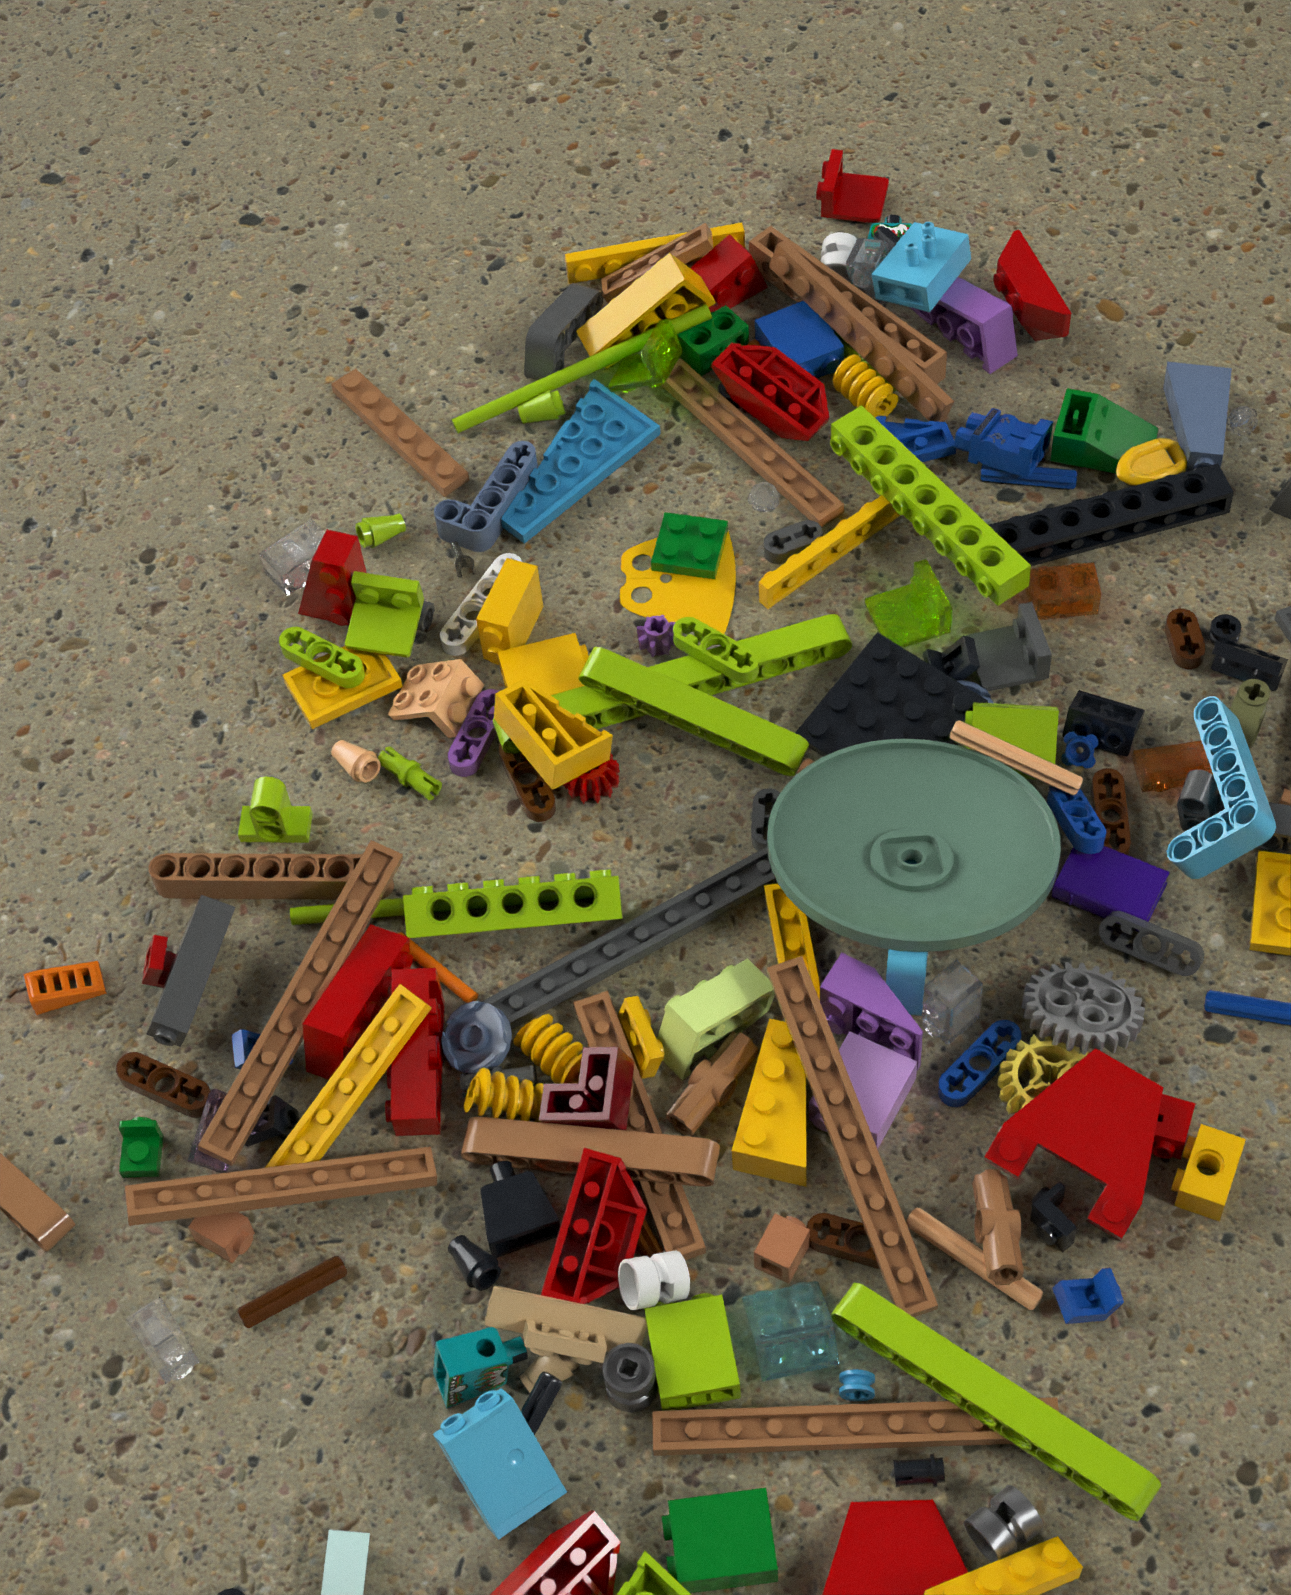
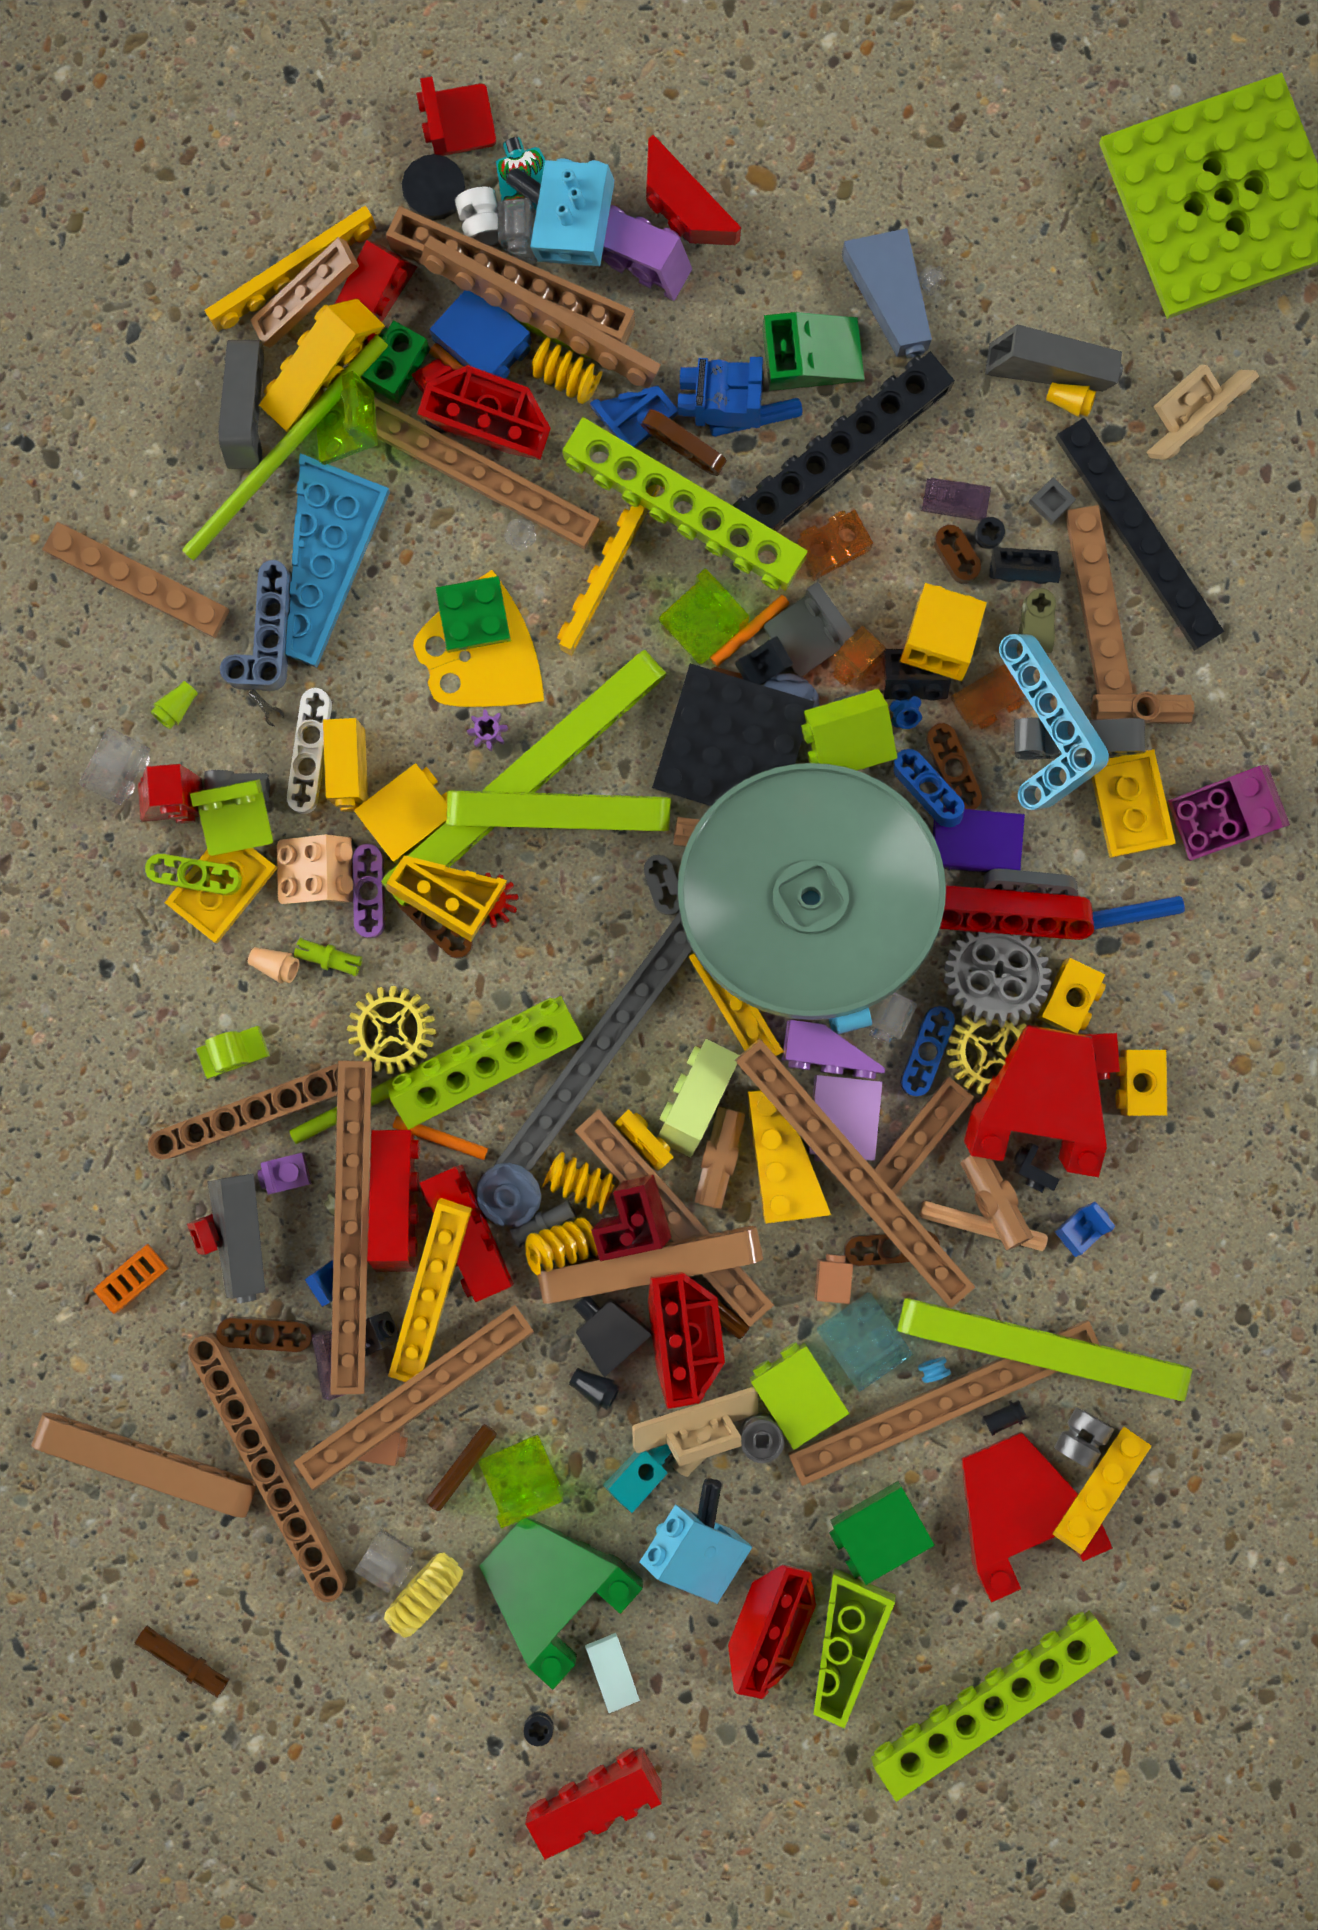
camera: 25 degrees left, 30 degrees up
(100, 1223) = (268, 1482): none -> medium nougat beam
(140, 1148) = (276, 1399): green bracket -> none
(183, 1392) = (423, 1595): none -> light yellow gear
(264, 944) = (284, 1173): none -> medium lavender bracket
(316, 1443) = (543, 1582): none -> green wedge
(348, 1326) = (521, 1480): none -> clear neon green bracket
(448, 837) = (401, 1018): none -> light yellow gear
(542, 407) = (264, 504): lime cone -> none
(654, 1279) = (753, 1352): white wheel -> none
(723, 662) = (527, 739): lime beam -> none
(790, 539) = (561, 569): dark grey beam -> none
(809, 230) = (432, 186): none -> black tile
(943, 1138) = (922, 1134): none -> medium nougat plate
(947, 639) = (749, 630): none -> orange bar
(950, 467) = (683, 442): none -> reddish brown beam
(1016, 758) = (861, 757): light nougat axle -> none
(1047, 677) = (857, 658): none -> clear orange brick
(1105, 959) = (1017, 913): none -> red beam
(1143, 686) = (943, 632): none -> yellow brick
(1151, 462) = (867, 368): yellow piece -> none
(1167, 1042) = (1058, 1011): none -> yellow brick
(1200, 594) = (956, 499): none -> clear purple plate

